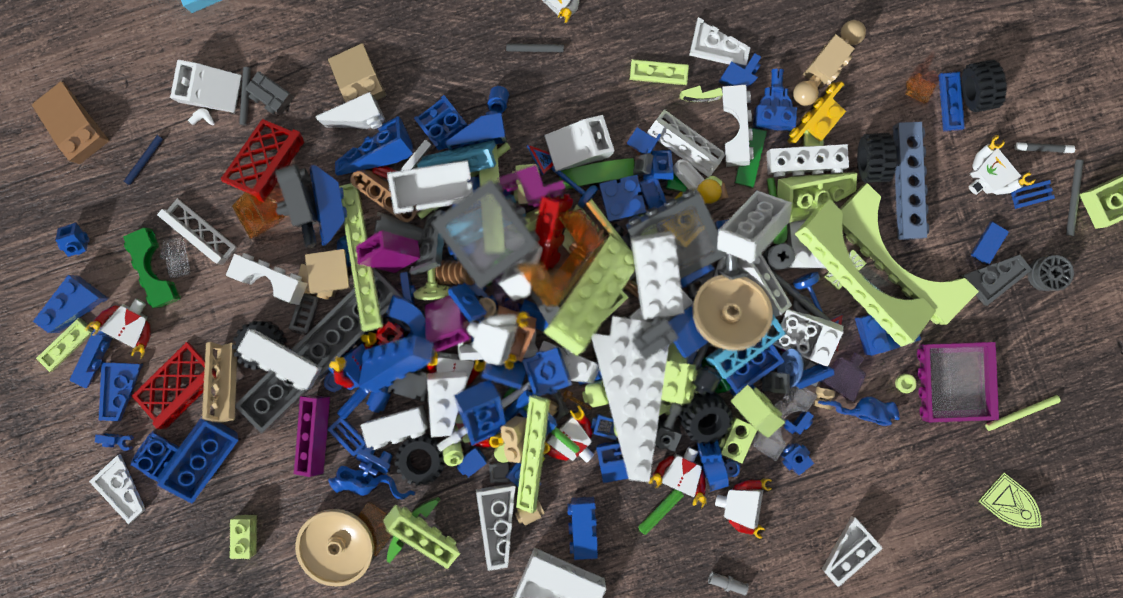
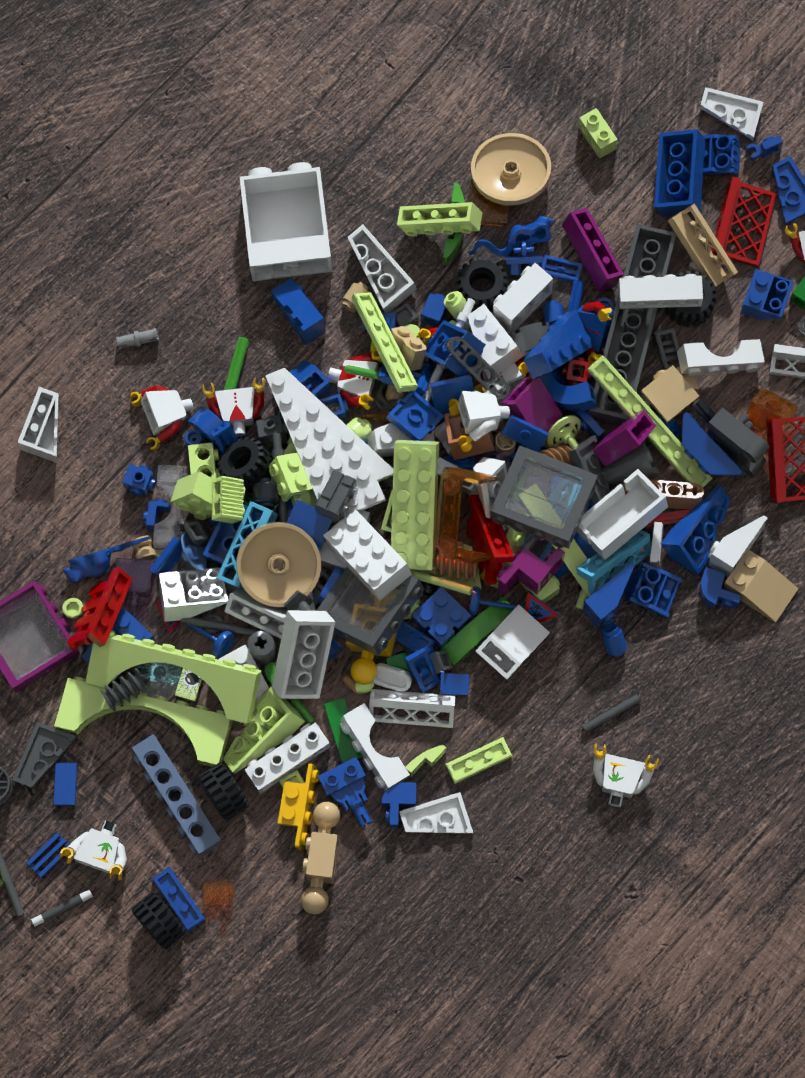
camera: 155 degrees right, 15 degrees down
(196, 309) = (766, 296): none -> blue slope
(396, 97) = (711, 590): none -> blue brick
(474, 377) = (480, 365): none -> dark grey beam
(742, 391) = (228, 499): none -> yellowish green brick
(887, 360) = (101, 610): none -> red fence
(912, 282) = (124, 689): none -> dark grey piece

